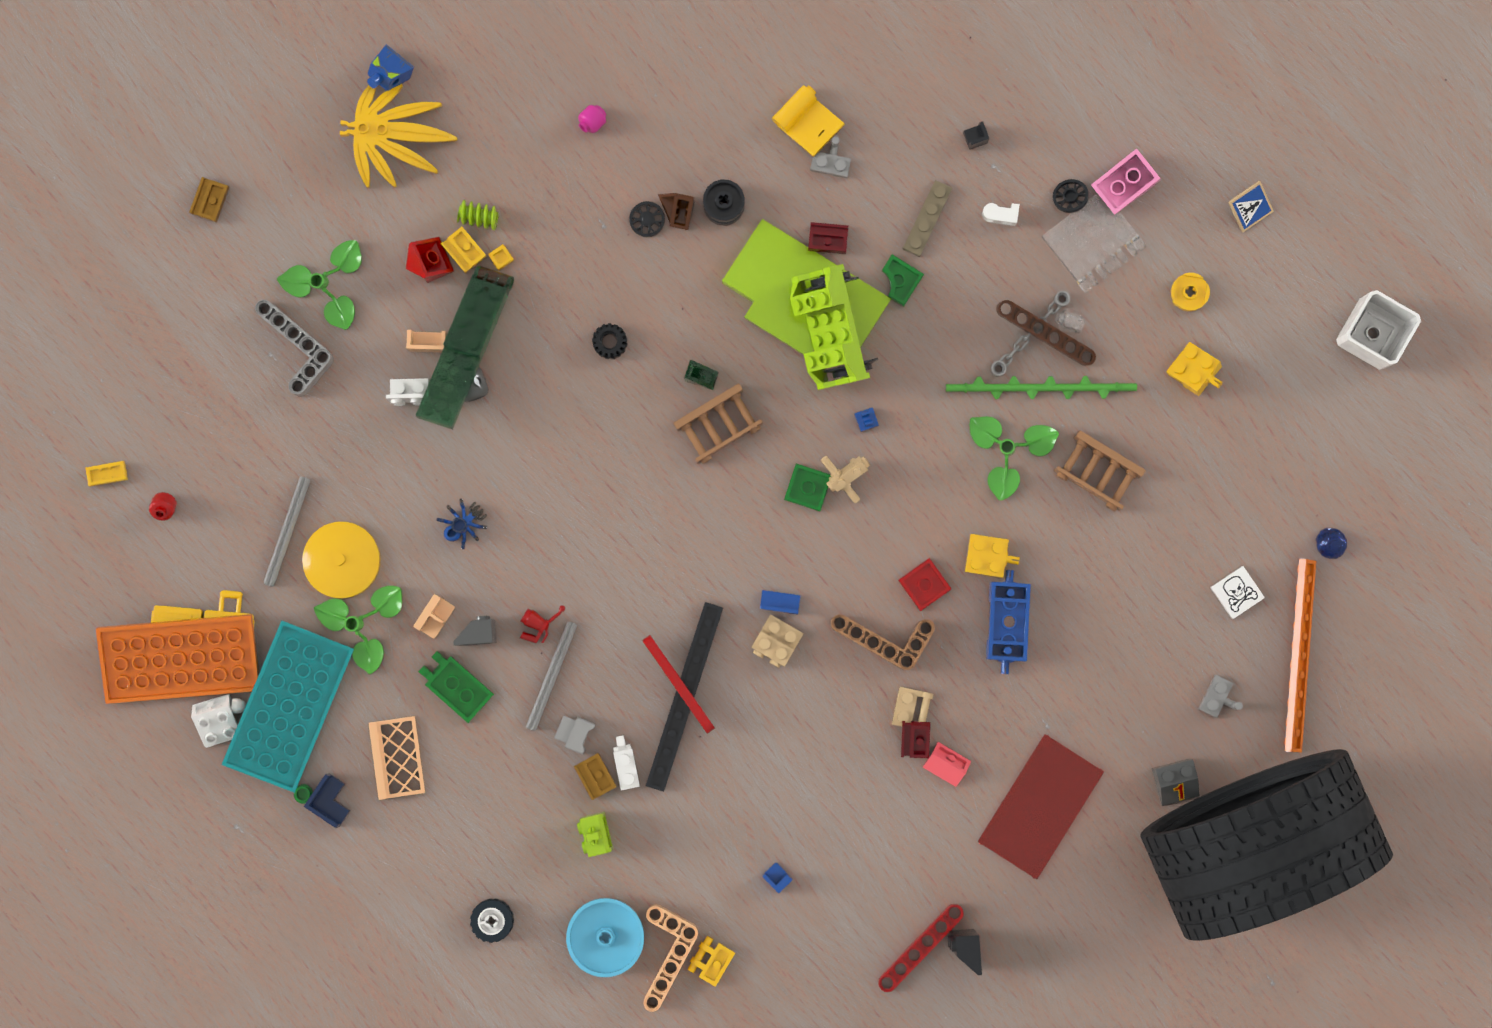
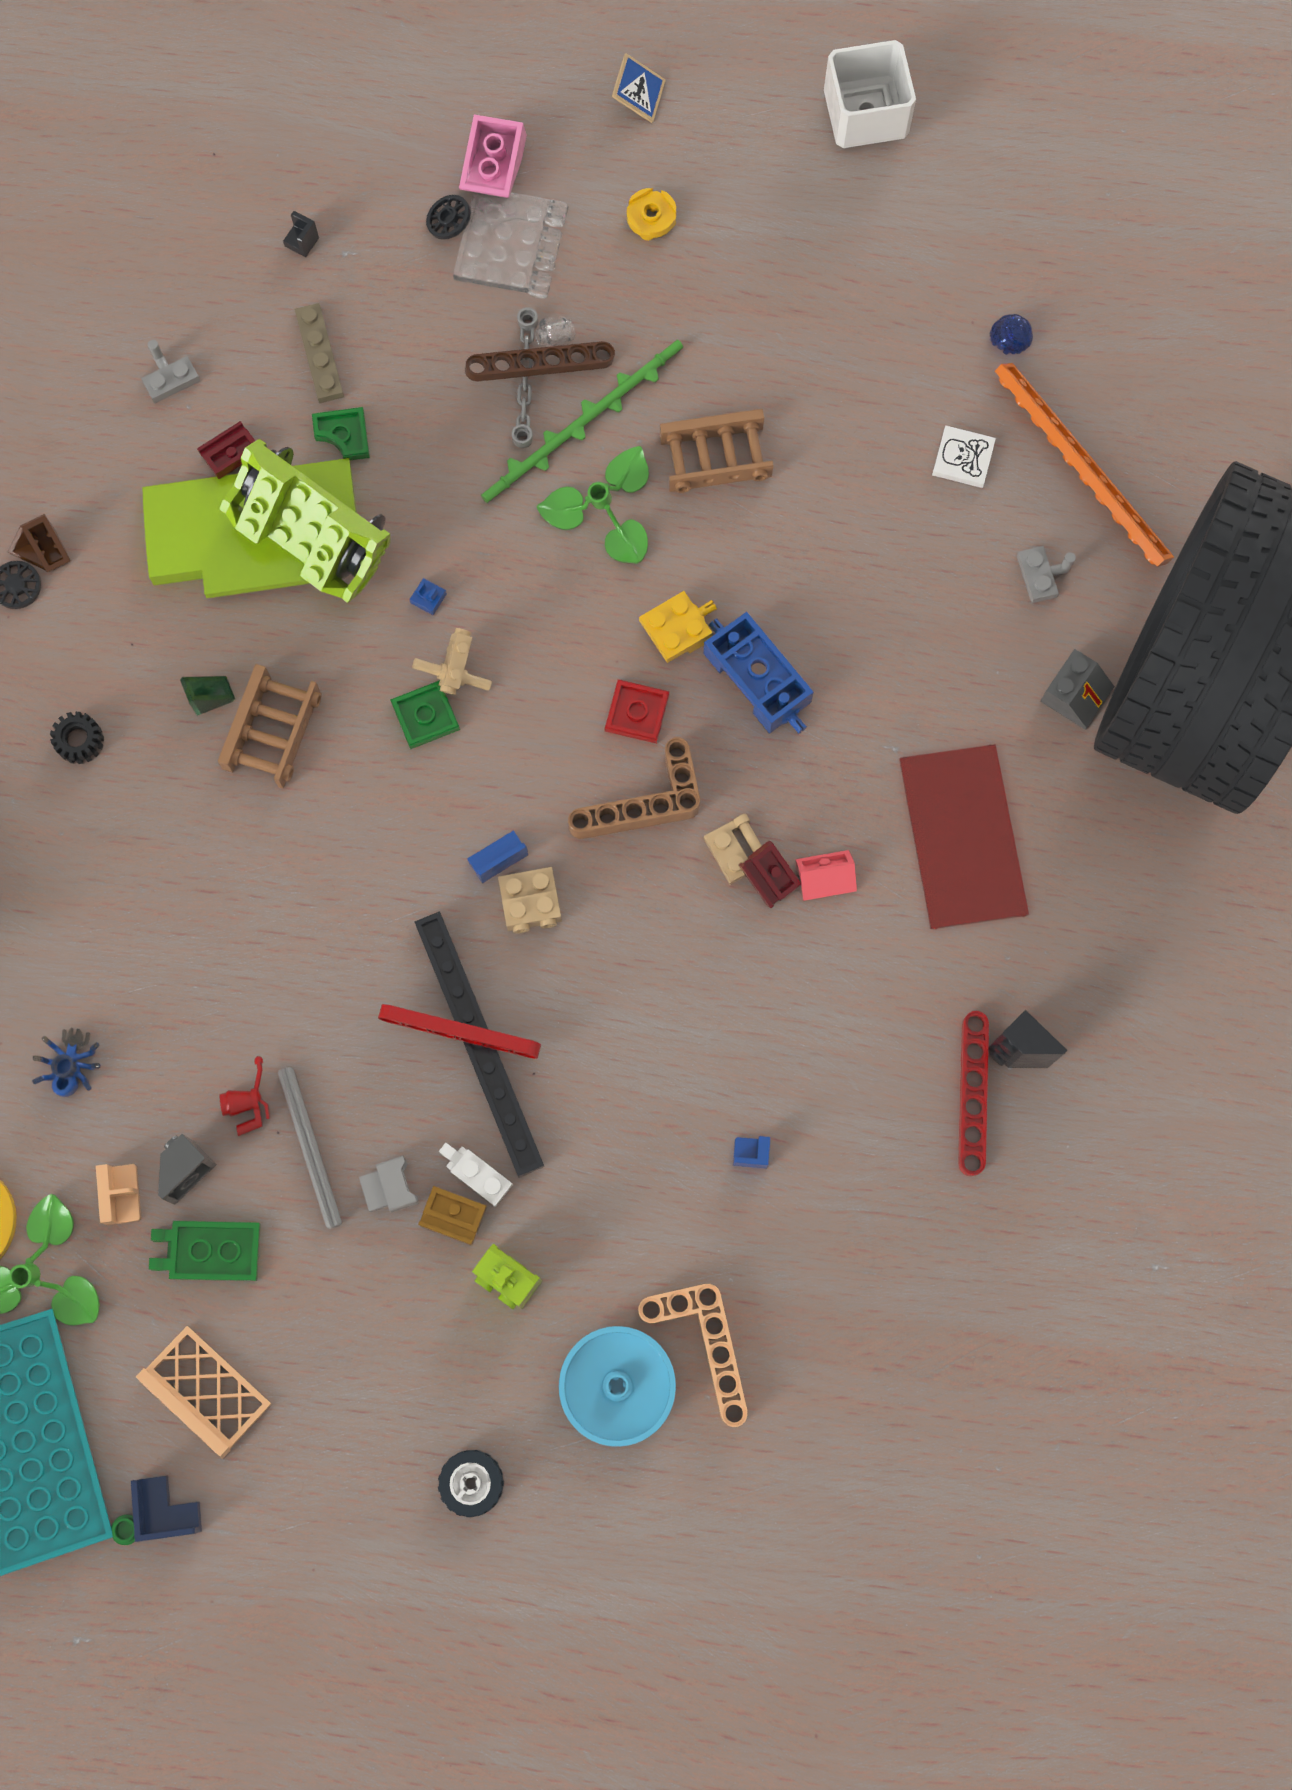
camera: 40 degrees left, 10 degrees down
(717, 963) = (768, 1308): yellow plate -> none
(723, 191) = (84, 499): black wheel -> none
(805, 119) = (107, 355): yellow door -> none
(1001, 215) = (392, 289): white leg -> none
(1195, 369) = (724, 279): yellow plate -> none

